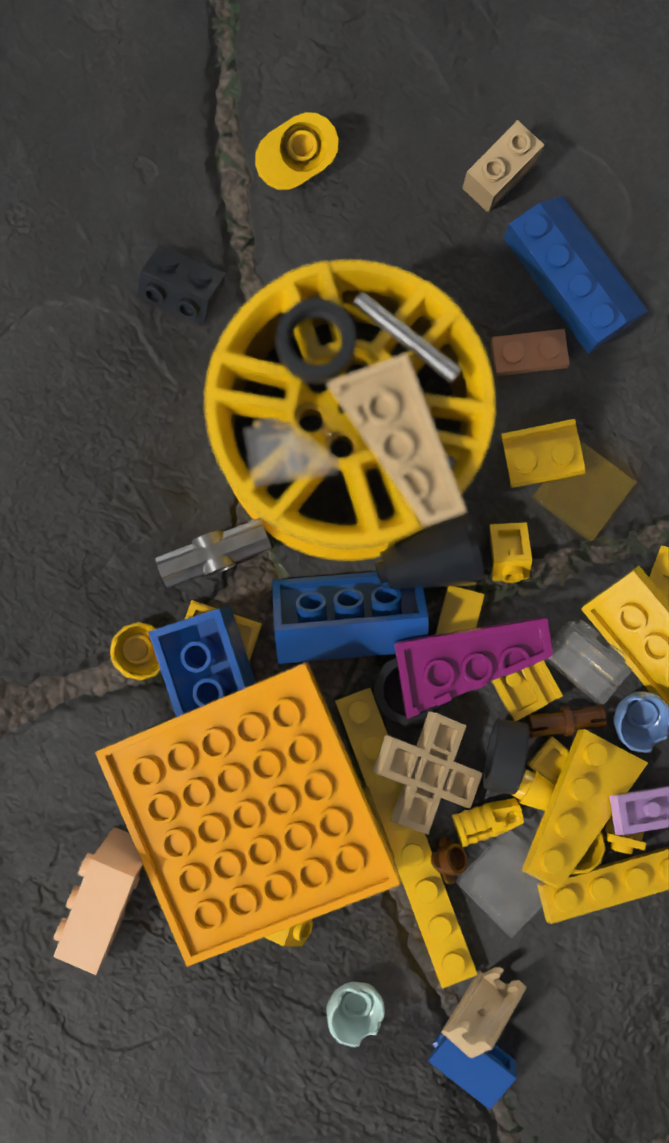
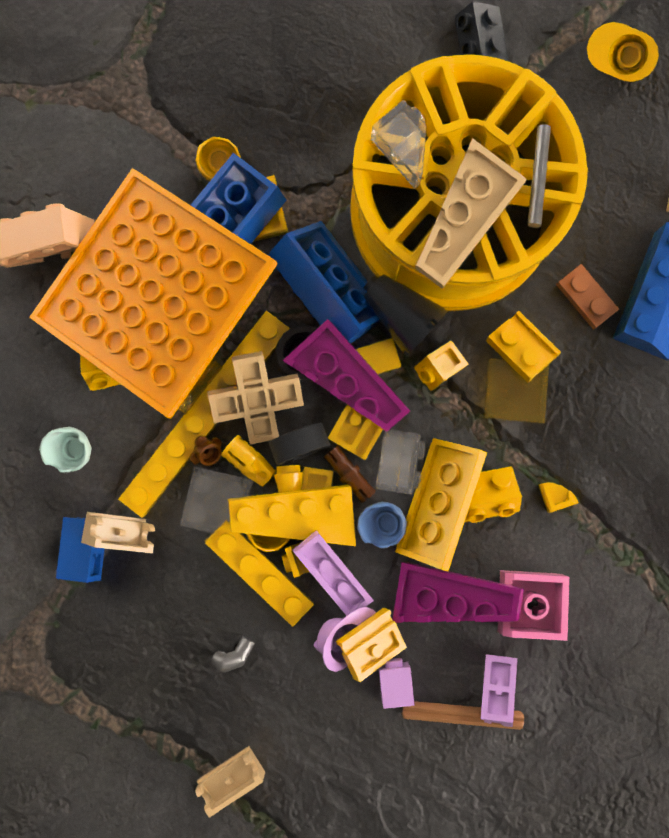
camera: 60 degrees right, 0 degrees up
(213, 553) = (313, 169): flat silver piece -> none
(321, 309) = (505, 91): black tyre -> none

